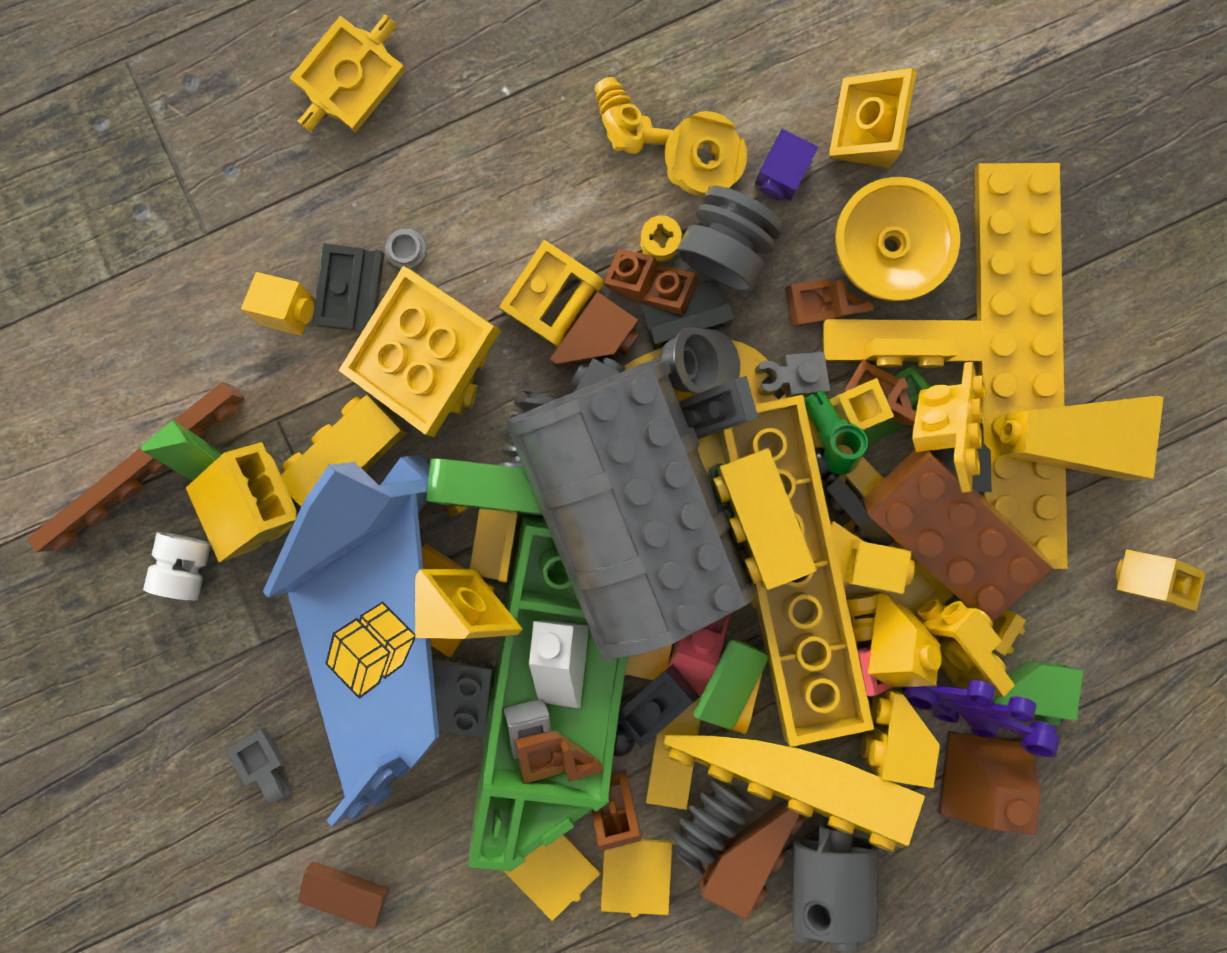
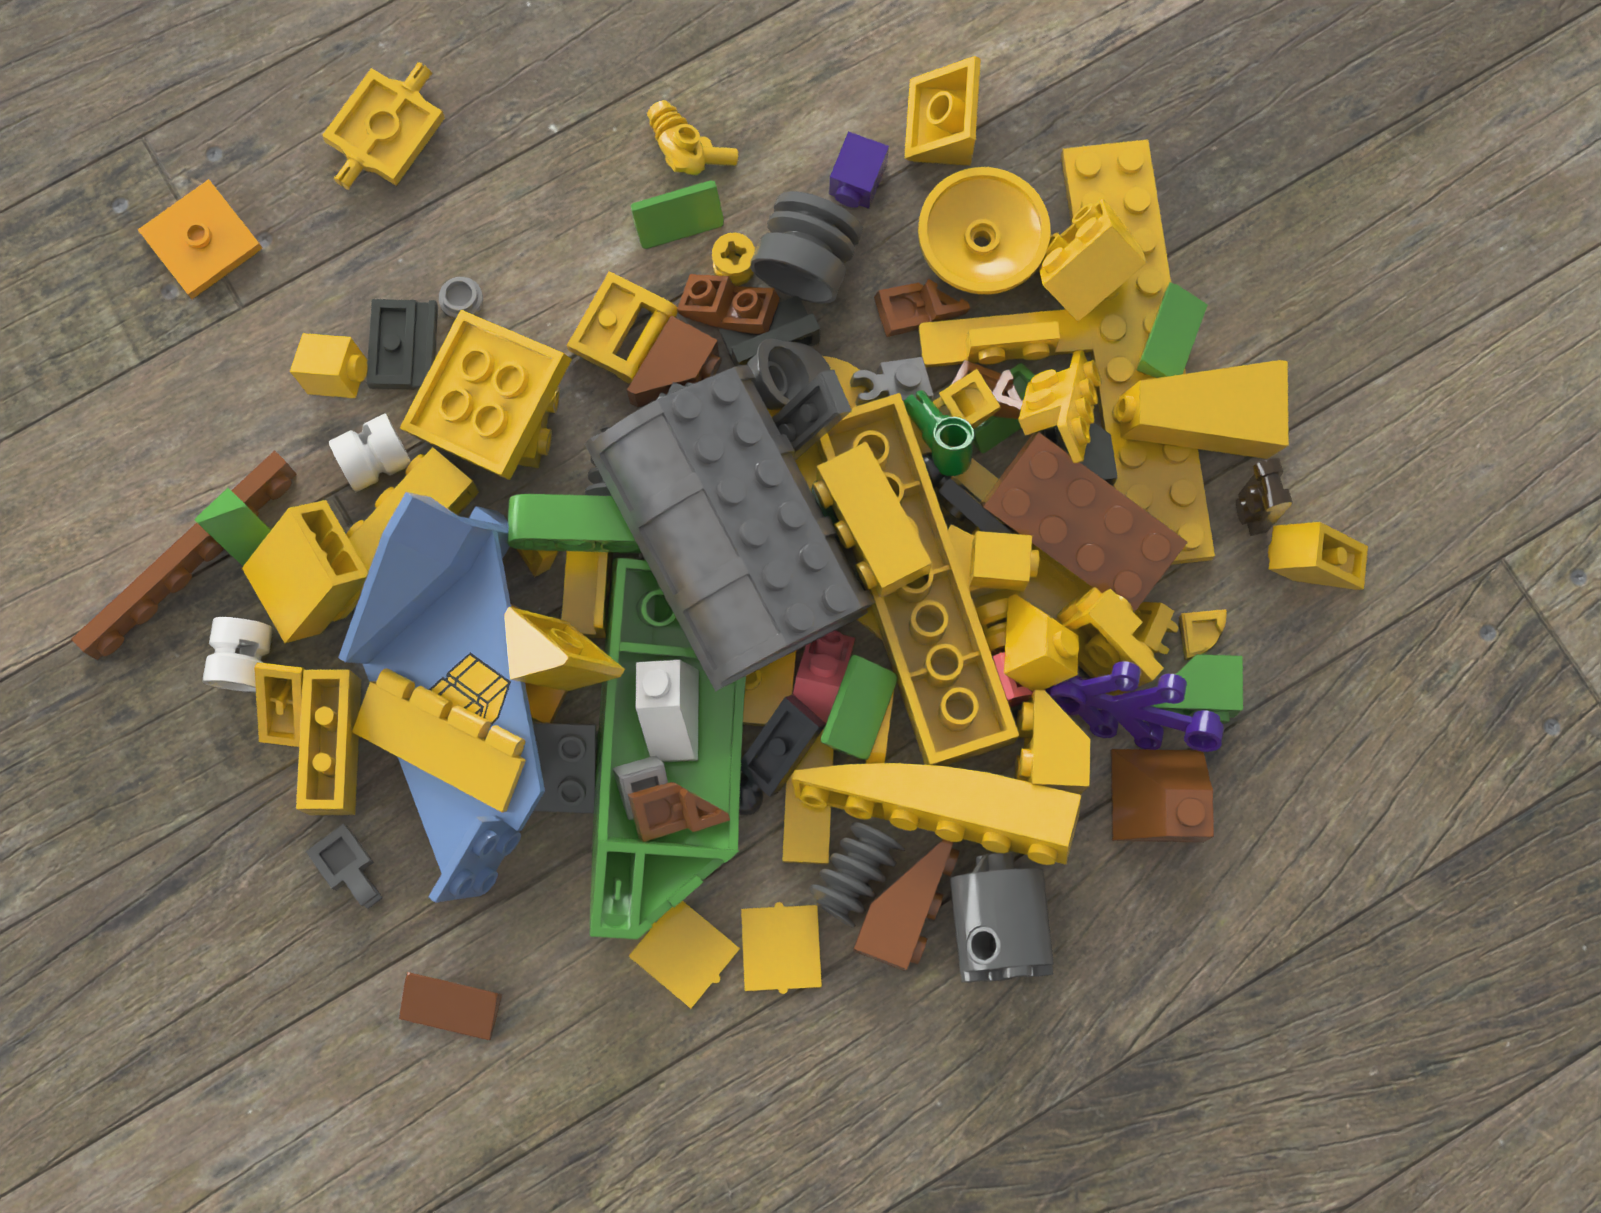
camera: 10 degrees left, 10 degrees down
(171, 165) = (200, 239): none -> light orange plate
(216, 613) = (278, 703): none -> yellow slope
(251, 658) = (327, 743): none -> yellow brick
(310, 390) = (370, 452): none -> white wheel
(351, 681) = (441, 746): none -> yellow windscreen
(613, 190) = (677, 214): none -> bright green slope
(617, 821) = (750, 875): dark orange slope -> none
(723, 142) = (754, 150): yellow plate -> none
(995, 280) = (1090, 259): none -> yellow slope
(1044, 635) = (1201, 631): none -> yellow tile
(1058, 359) = (1172, 333): none -> bright green slope
(1126, 529) = (1263, 497): none -> dark brown plate

